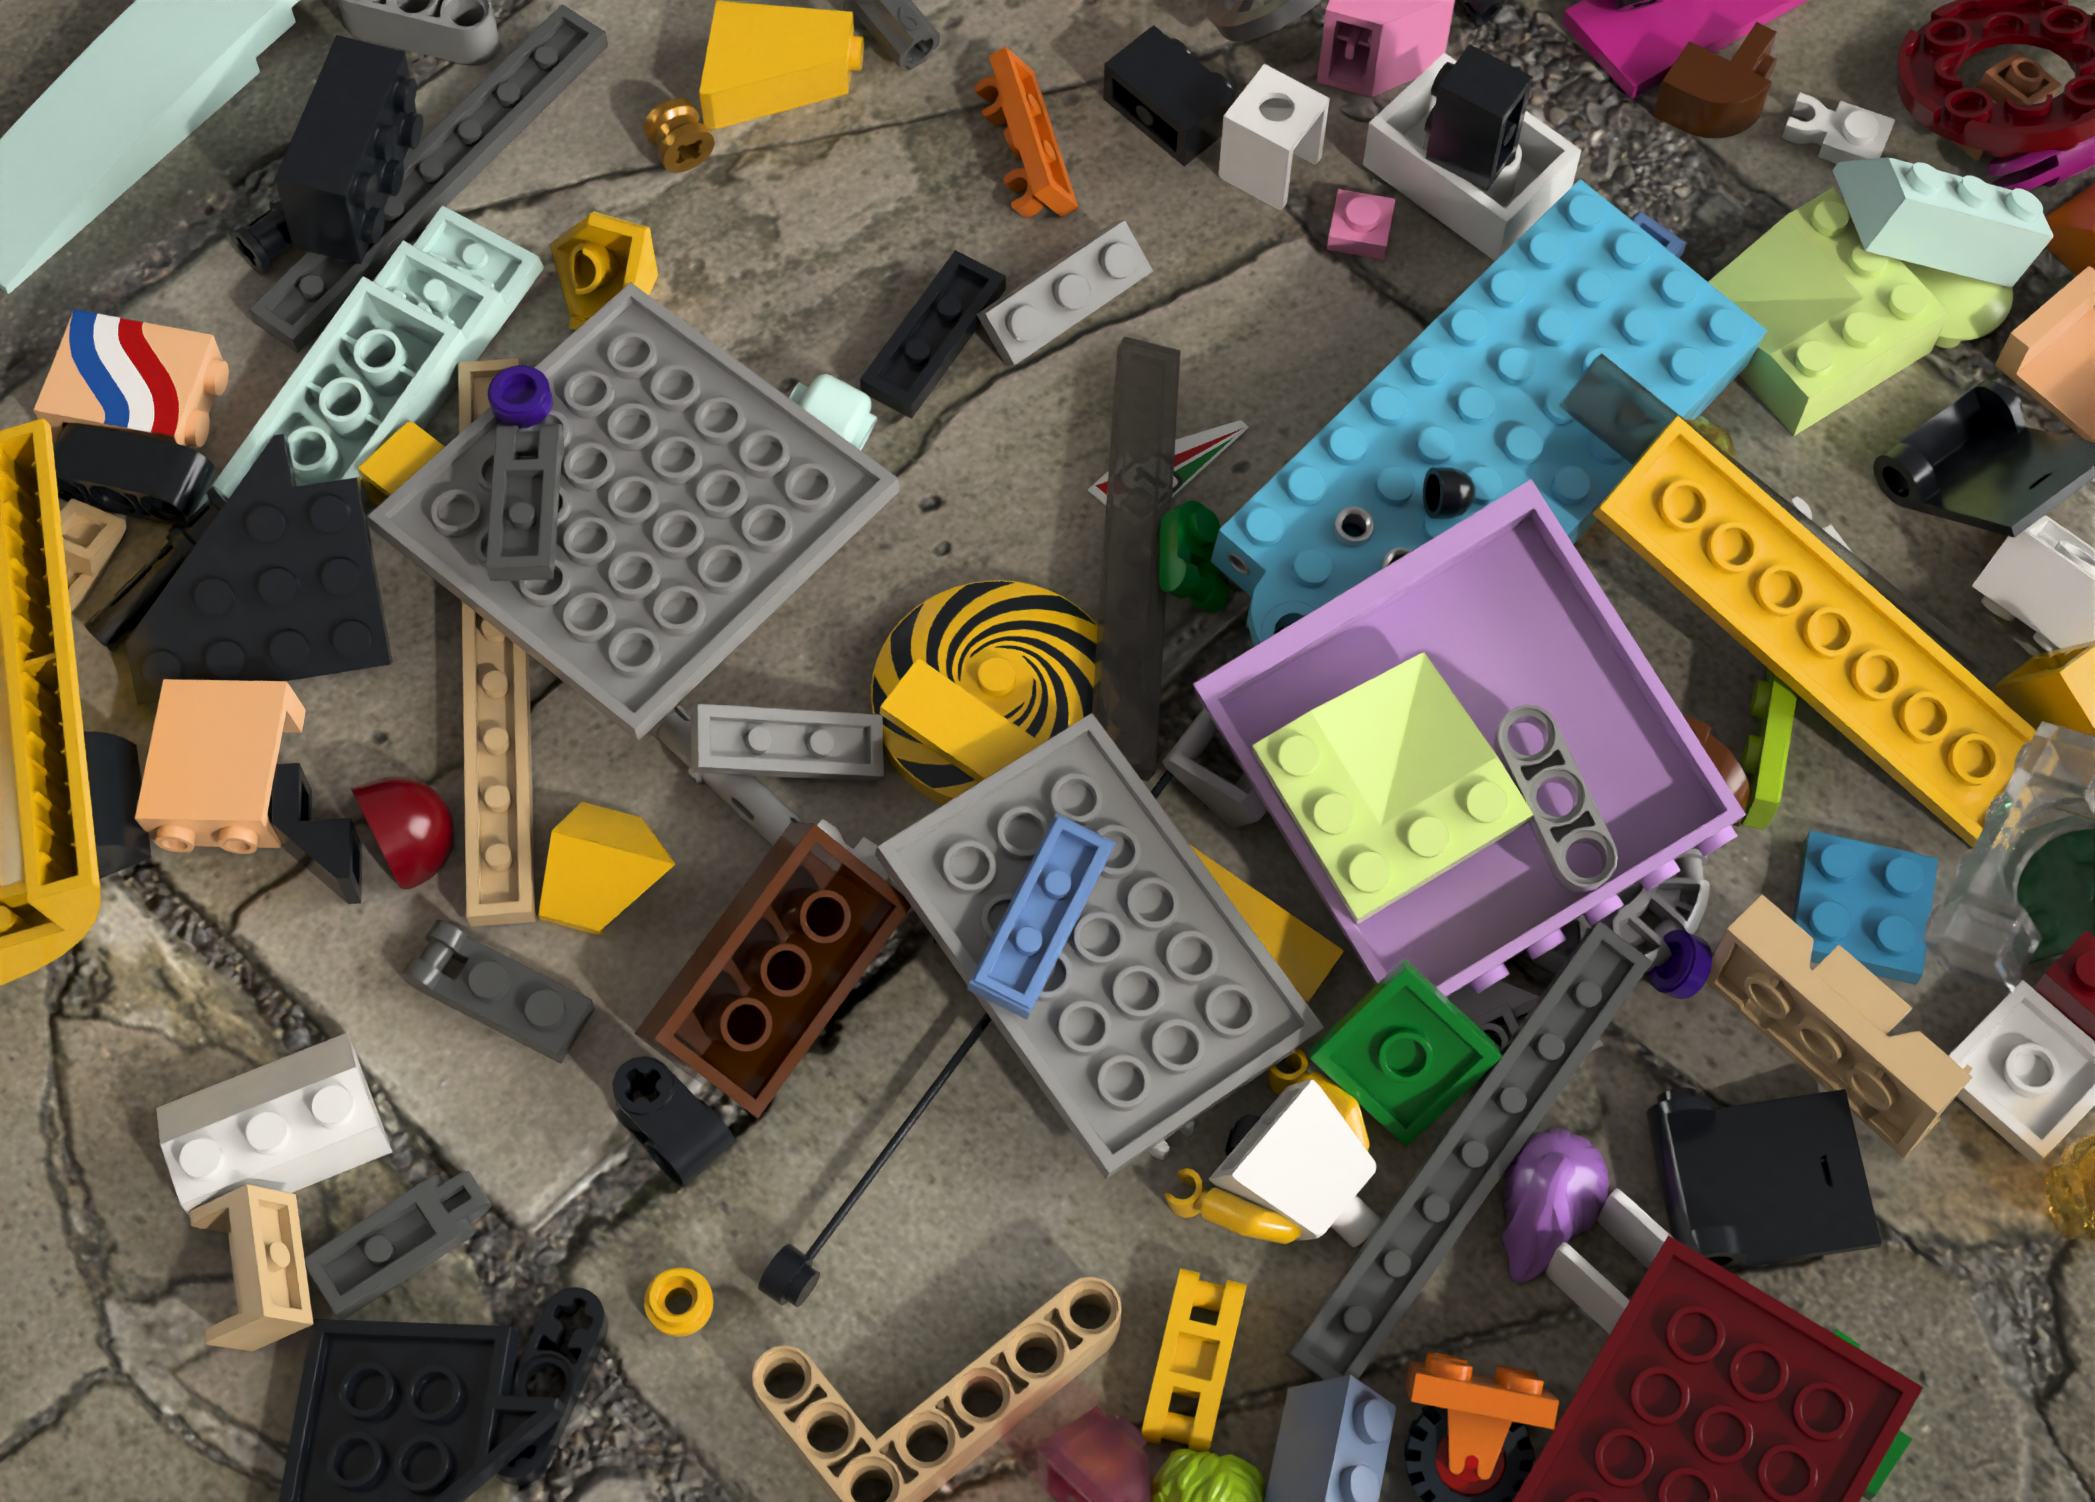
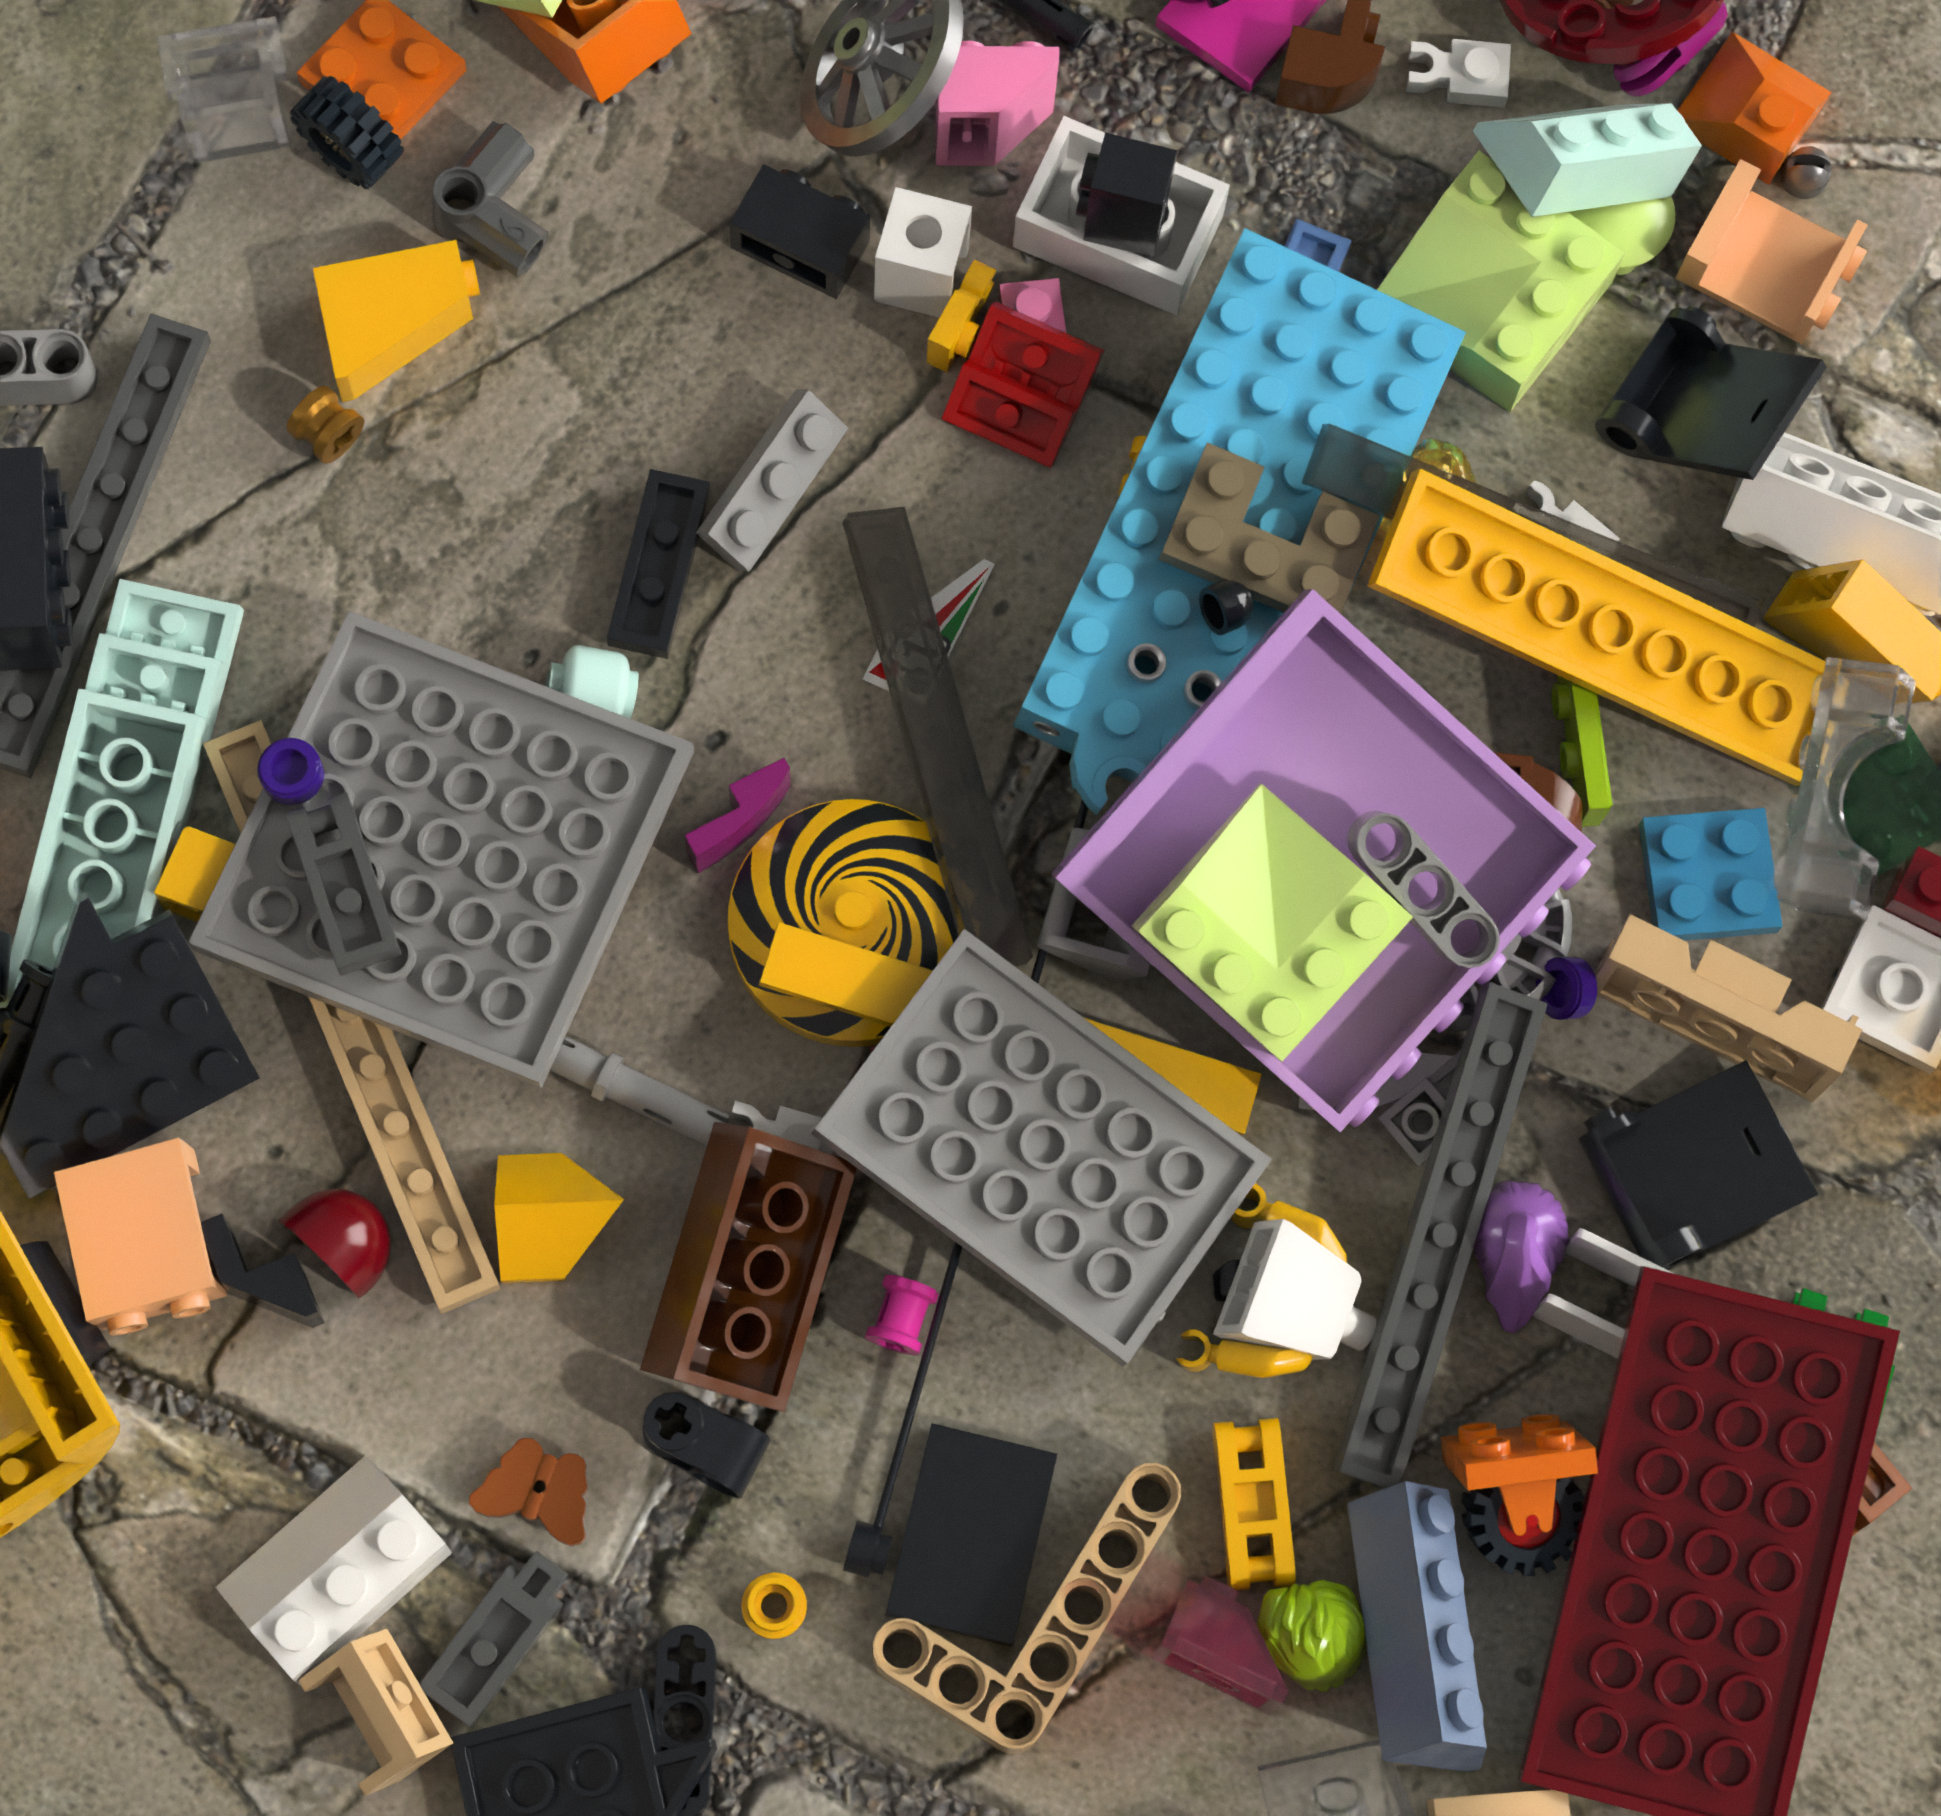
camera: 25 degrees left, 10 degrees up
(469, 1106) = (511, 1490): none -> dark orange animal
(499, 992) = (494, 1368): dark grey plate -> none
(599, 261) = (304, 598): yellow slope -> none
(786, 743) = (678, 1040): light grey plate -> none
(900, 1299) = (971, 1535): none -> black tile
(907, 1064) = (901, 1315): none -> dark pink bush
(945, 560) = (752, 802): none -> magenta slope
(1027, 135) = (675, 318): orange plate -> none
(1041, 916) = (987, 1145): medium blue tile -> none
(1186, 550) = (986, 723): green plate -> none
(1283, 210) = (956, 328): none -> yellow plate
(1329, 278) = (1022, 384): none -> red slope
(1405, 1052) = (1353, 1160): green plate -> none
(1458, 432) = (1218, 546): none -> dark tan plate

